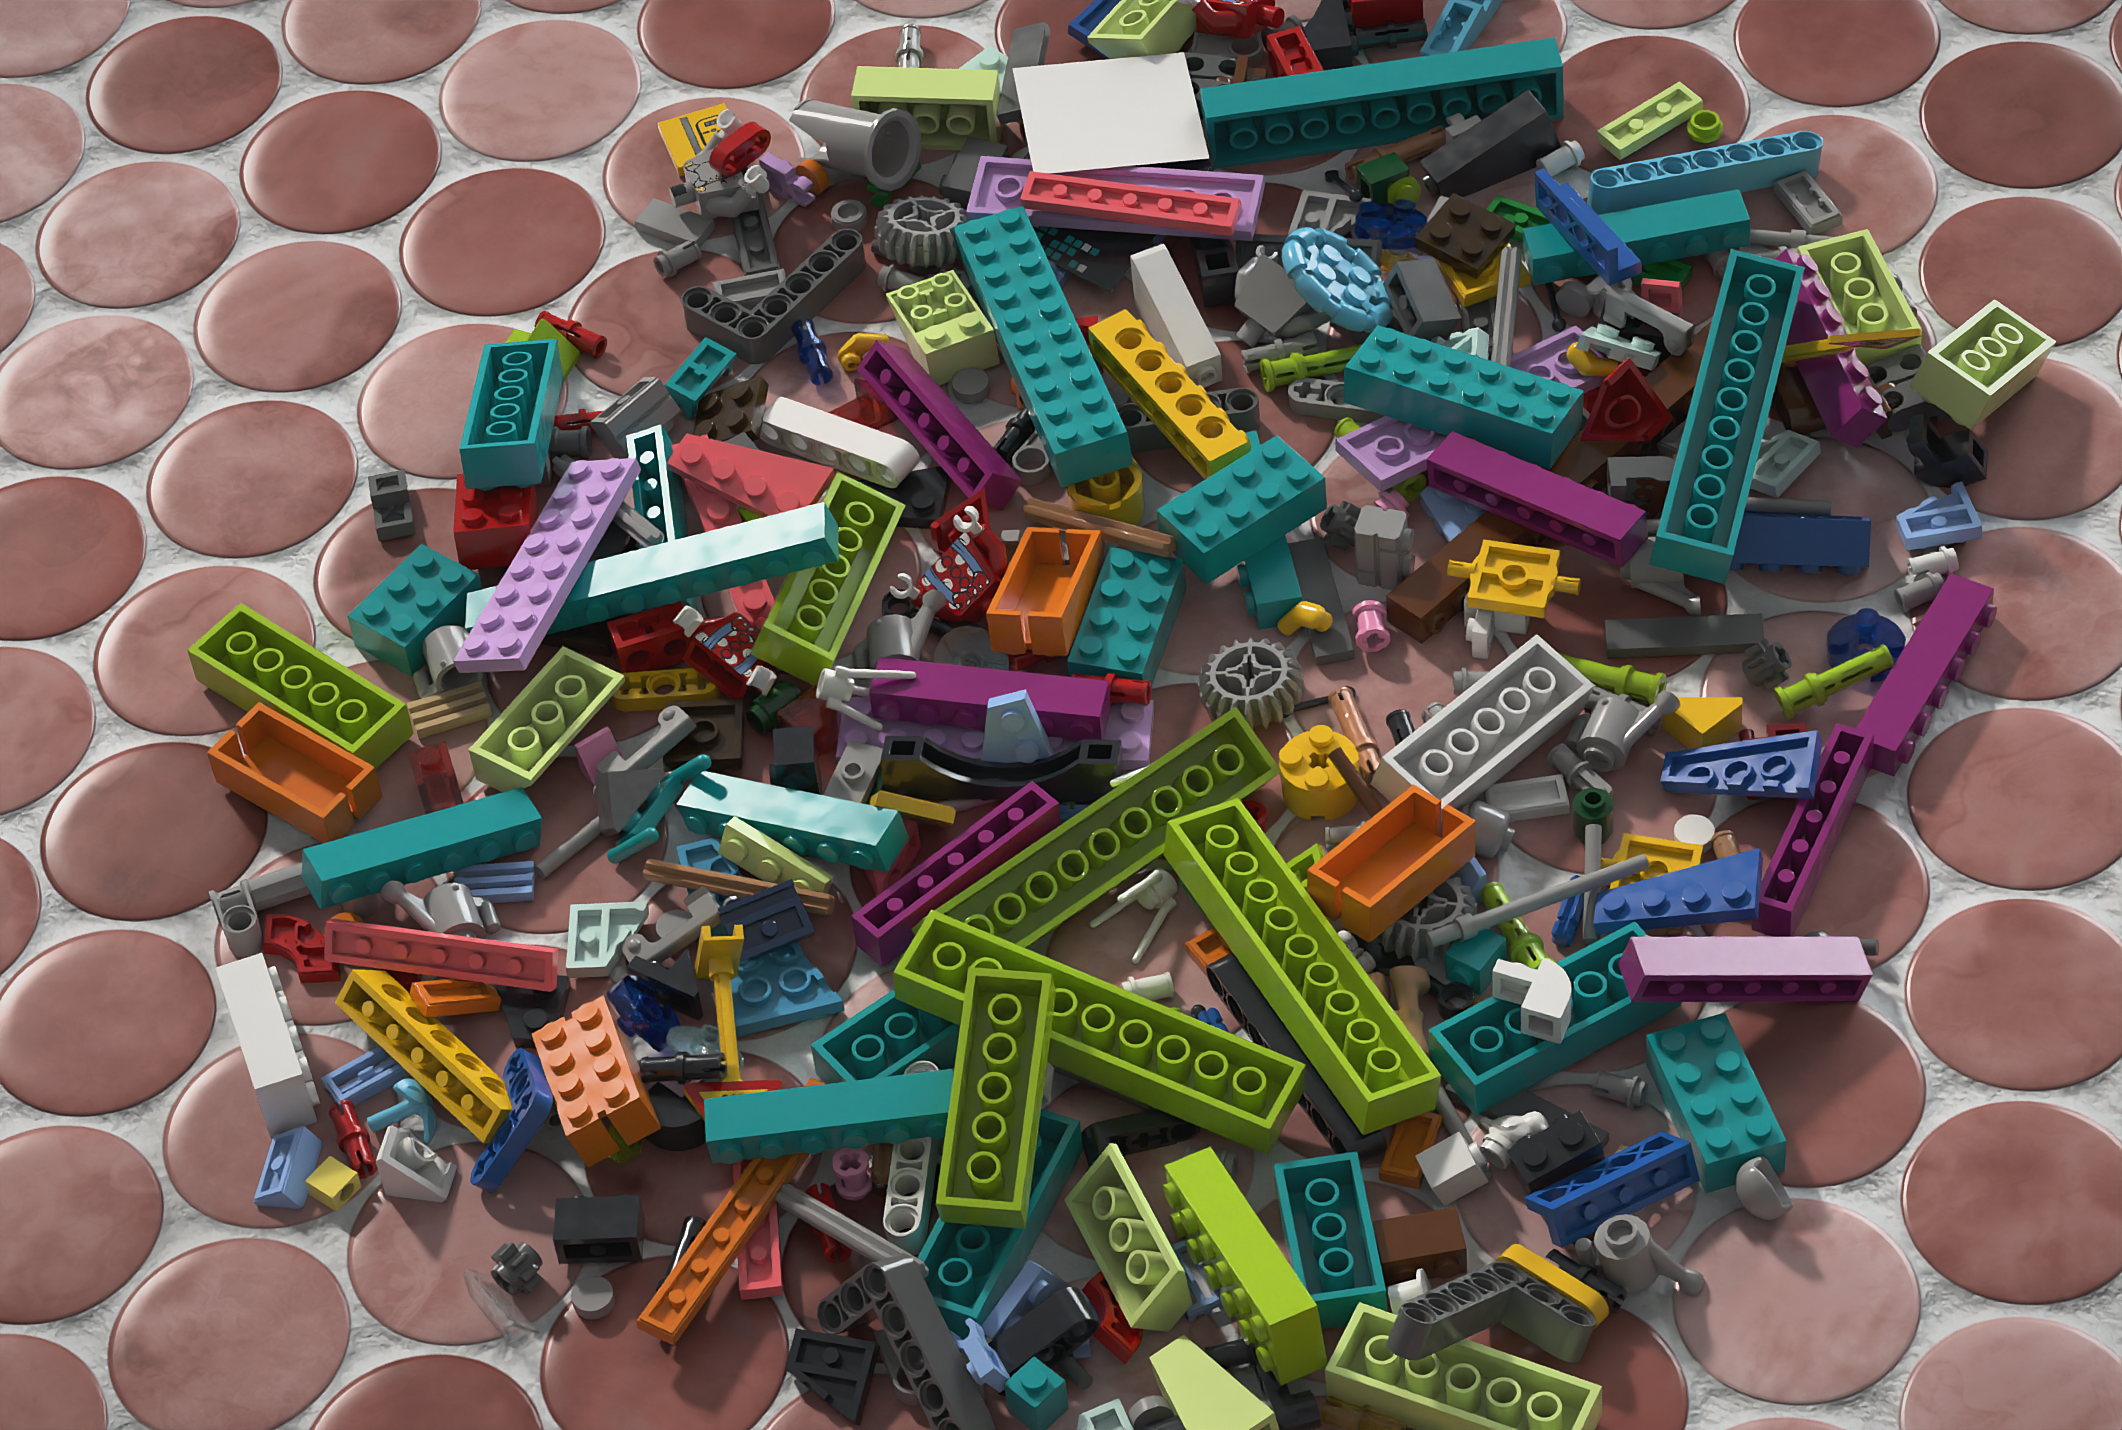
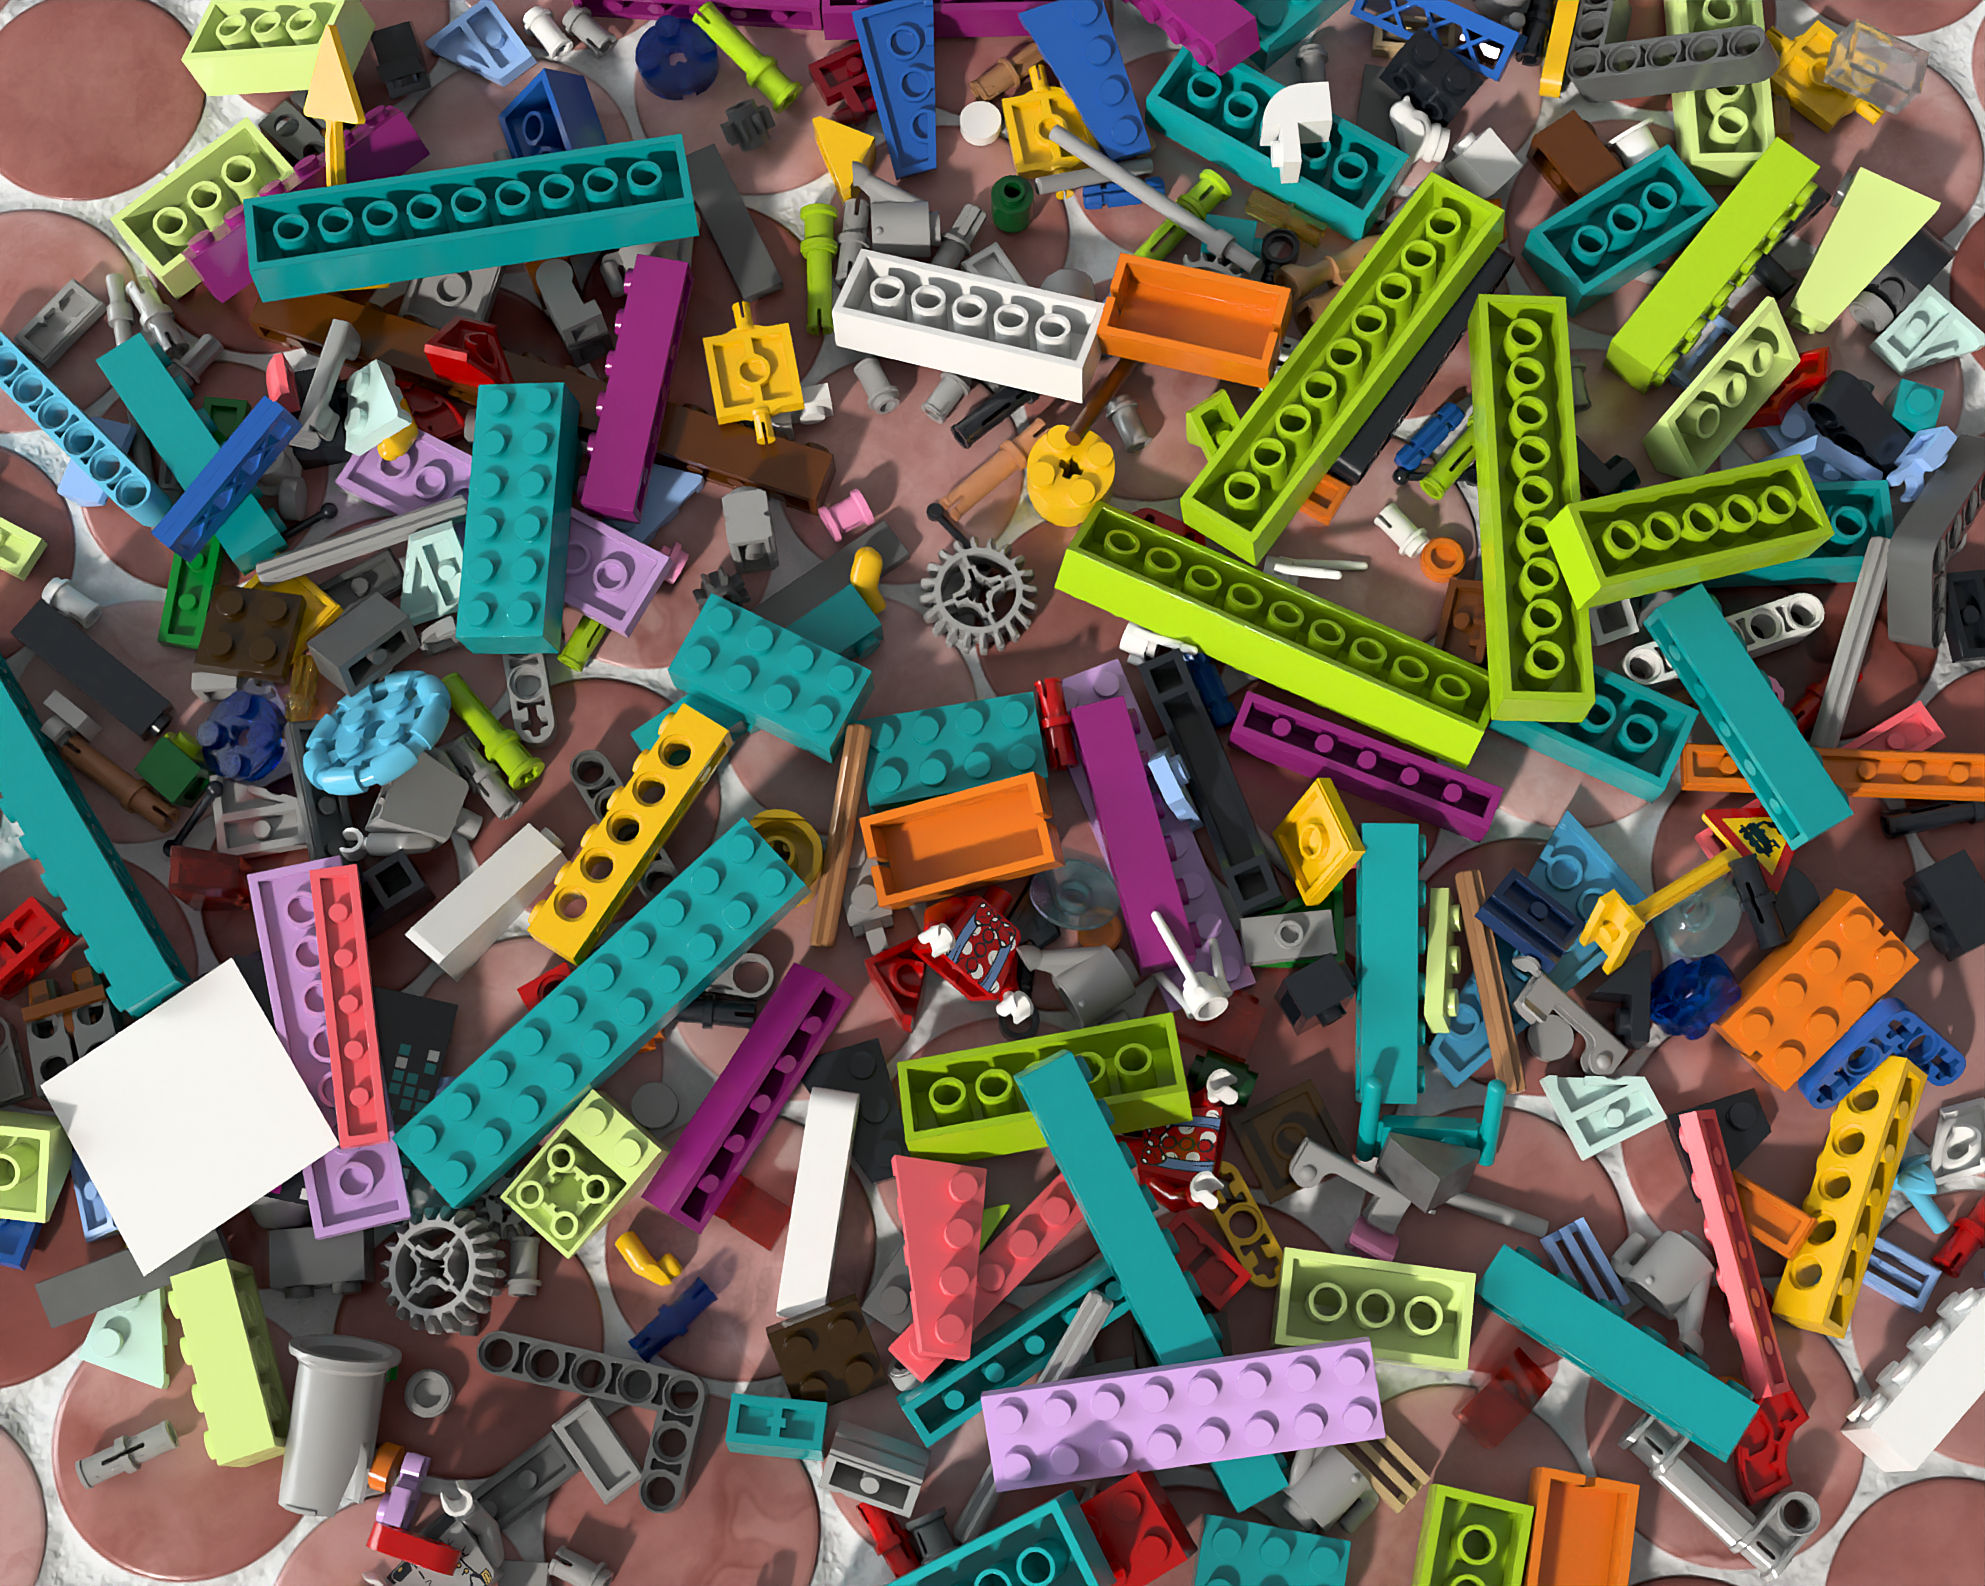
camera: 120 degrees left, 25 degrees up
(1285, 172) = (209, 879): none -> clear red slope

